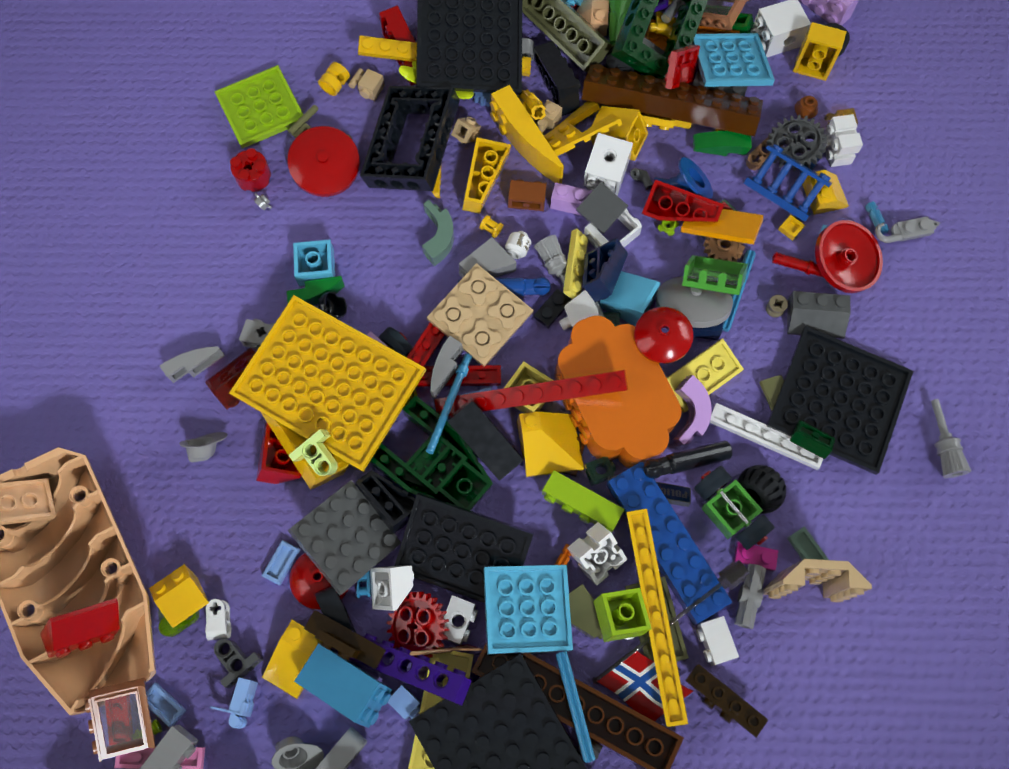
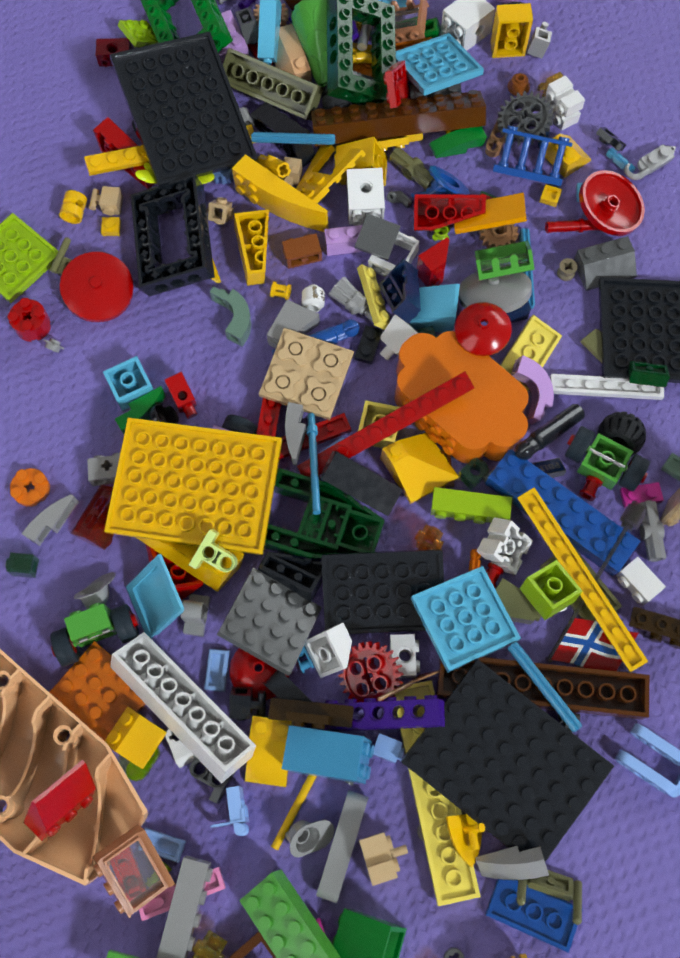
camera: 20 degrees left, 0 degrees up
(149, 394) = (22, 565): none -> clear green brick
(166, 539) = (96, 691): none -> orange plate
(182, 316) = (24, 478): none -> orange plate
(183, 476) = (91, 626): none -> brick
(232, 585) = (183, 707): none -> white brick
(250, 472) = (155, 597): none -> medium azure piece
(282, 502) = (195, 614): none -> light grey tile
(289, 604) = (242, 702): none -> black brick
(292, 726) = (293, 812): none -> yellow bar
(356, 284) = (180, 390): none -> red torso
(361, 109) = (110, 226): none -> yellow plate
(528, 512) = (429, 533): none -> clear orange brick
(561, 85) = (293, 138): none -> dark azure axle
(576, 576) = (494, 572): none -> red bush
(646, 252) = (432, 264): none -> red slope
(666, 152) = (411, 167): none -> olive piece
(707, 529) = (590, 488): none -> red bush
(845, 71) = (539, 41): none -> light grey brick
(874, 190) = (608, 137): none -> black plate

